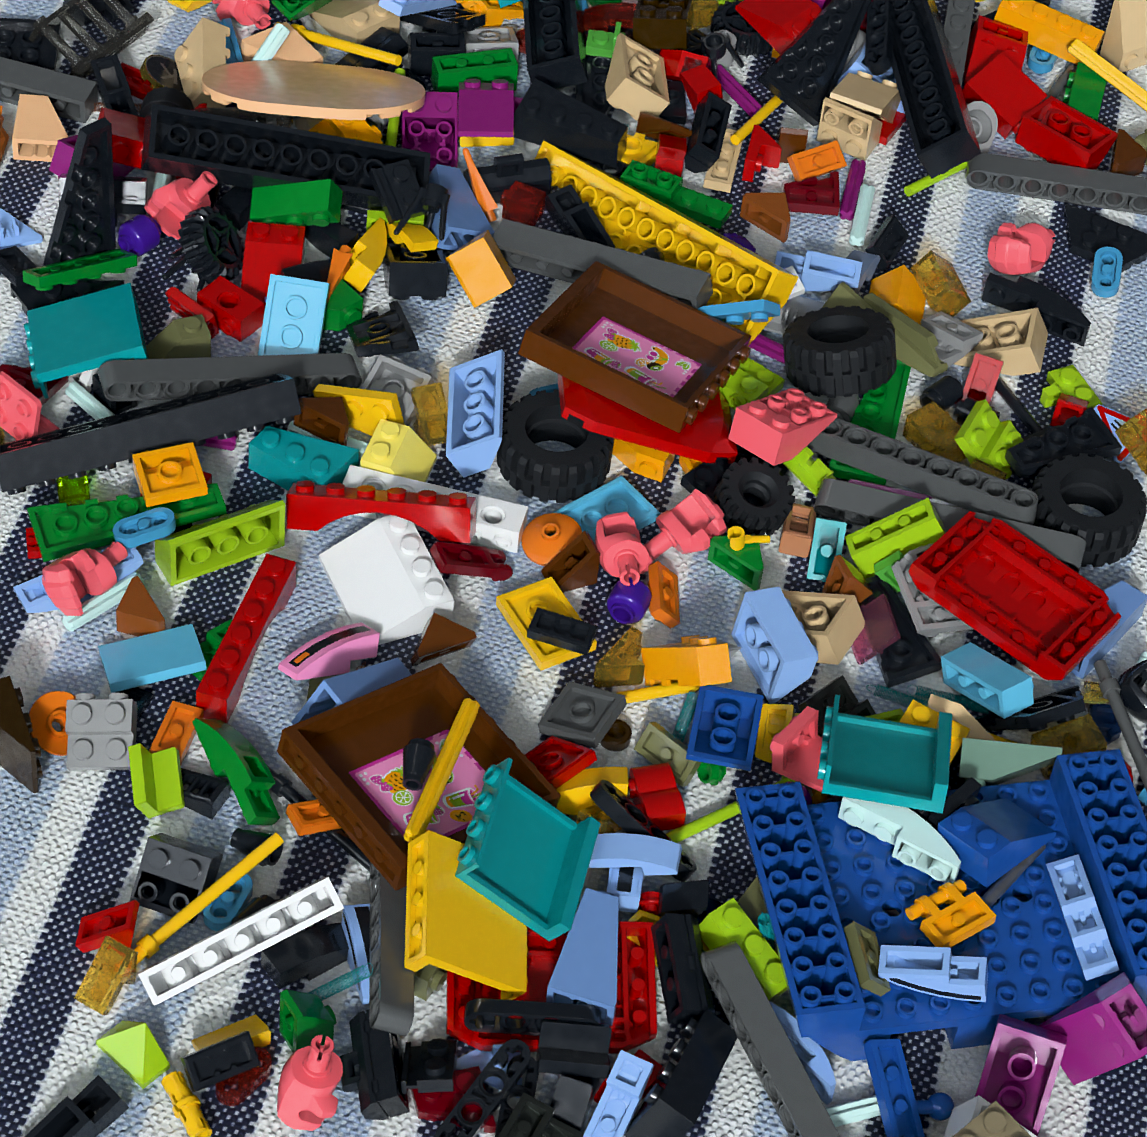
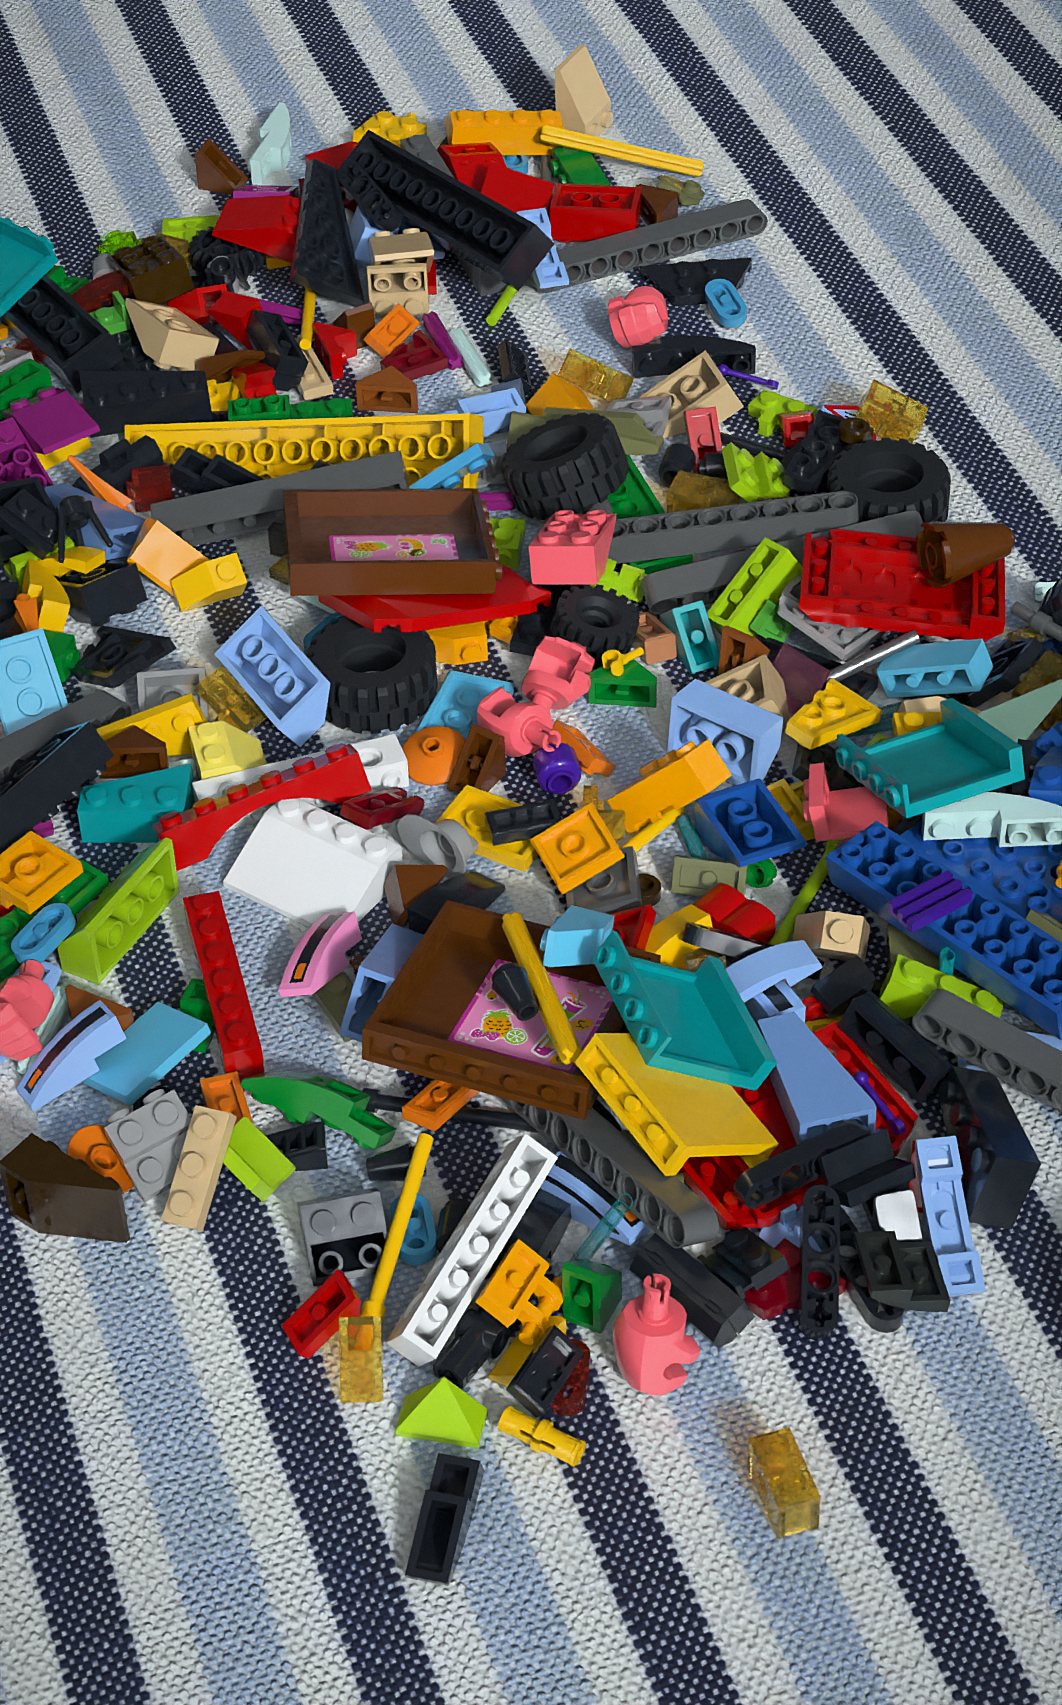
camera: 25 degrees left, 5 degrees down
(98, 631) = (71, 1055): none -> light blue slope
(112, 767) = (198, 1168): none -> tan plate
(208, 1007) = (475, 1340): none -> black piece
(245, 984) = (512, 1285): none -> light orange plate
(470, 664) = (466, 888): none -> black slope
(492, 613) = (438, 842): none -> light grey piece
(496, 743) = (575, 937): none -> medium azure slope
(499, 307) = (209, 583): none -> yellow slope
(582, 674) = (577, 848): none -> light orange plate
(633, 978) = (896, 1125): none -> dark purple hinge
(715, 857) = (833, 934): none -> tan slope
(773, 865) = (925, 898): none -> dark purple tile
(868, 675) = (831, 713): none -> yellow wing
(944, 643) = (874, 656): none -> flat silver bar
(991, 139) = (550, 270): none -> light blue slope
(1052, 331) = (772, 384): none -> dark purple hinge
(1080, 592) = (960, 548): none -> reddish brown cone
(1100, 441) = (853, 430): none -> dark brown tile

